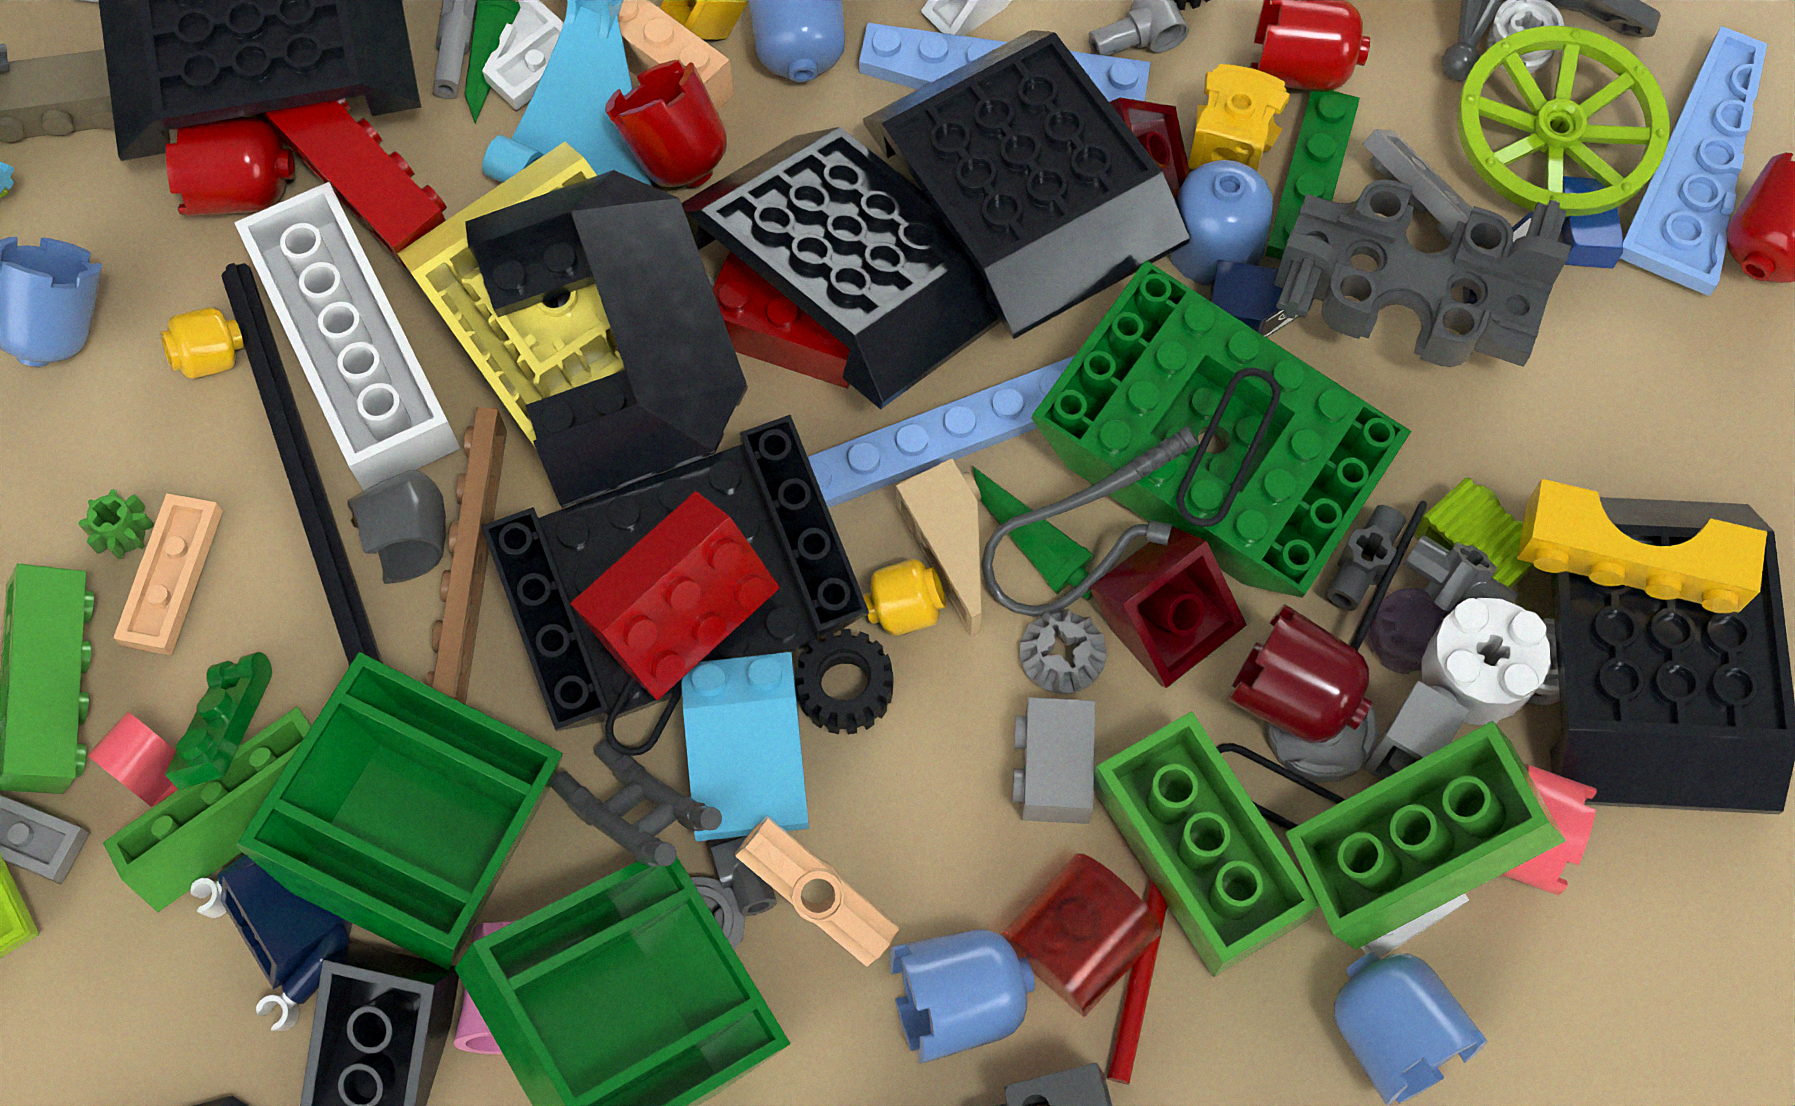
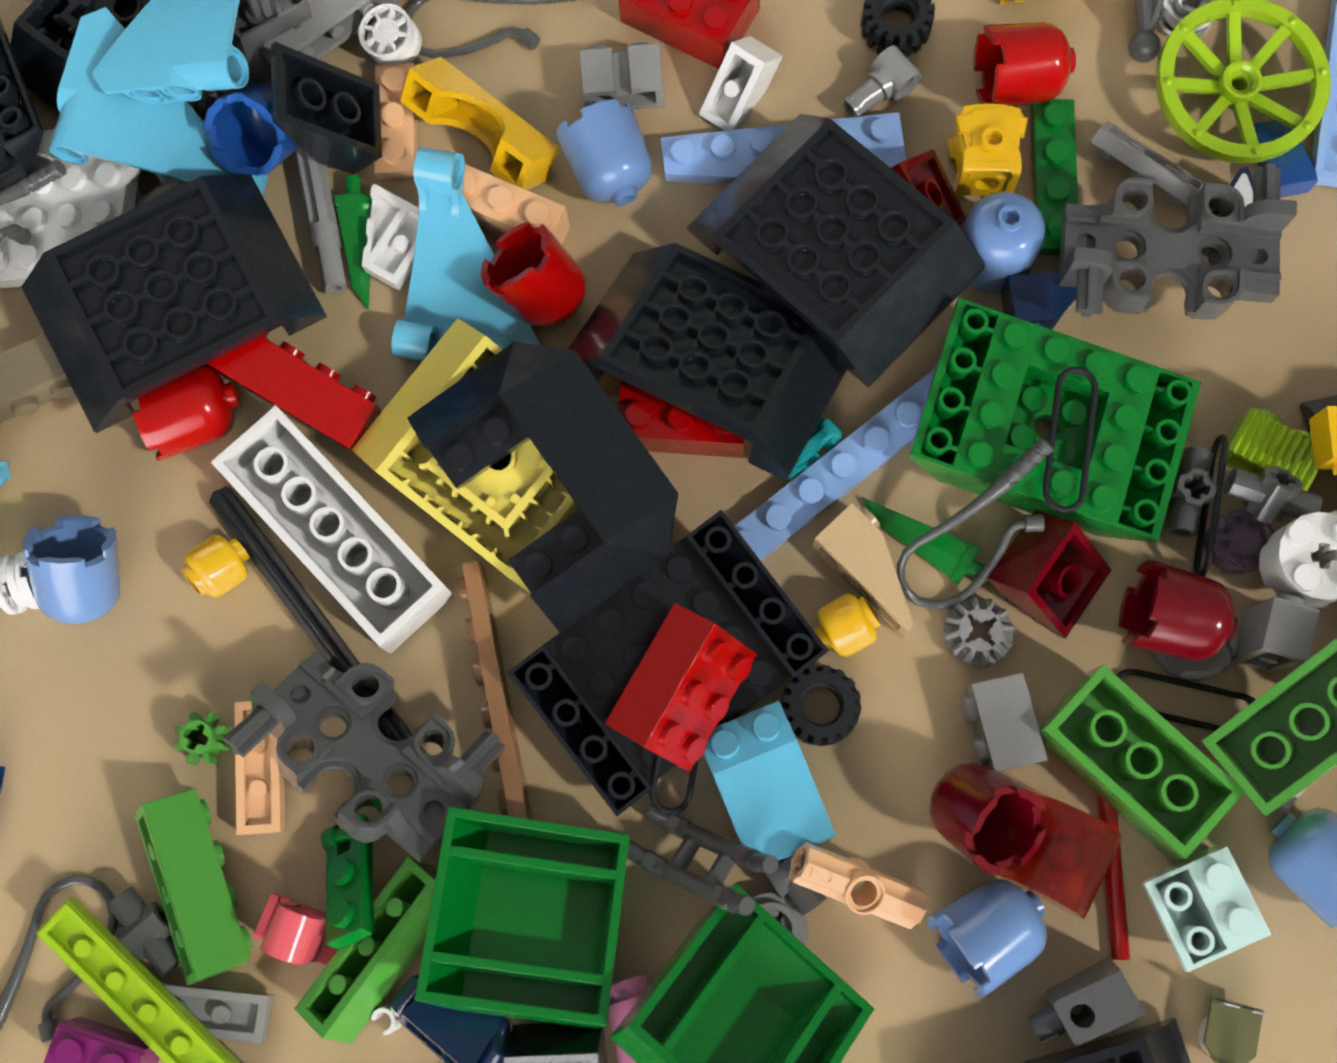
camera: 10 degrees left, 10 degrees up
(263, 498) = (320, 692): none -> dark grey gear
(402, 523) = (433, 675): dark grey piece -> none
(929, 392) = (824, 435): none -> teal piece
(997, 850) = (987, 816): none -> dark red cylinder
(1234, 1036) = (1205, 907): none -> light aqua slope

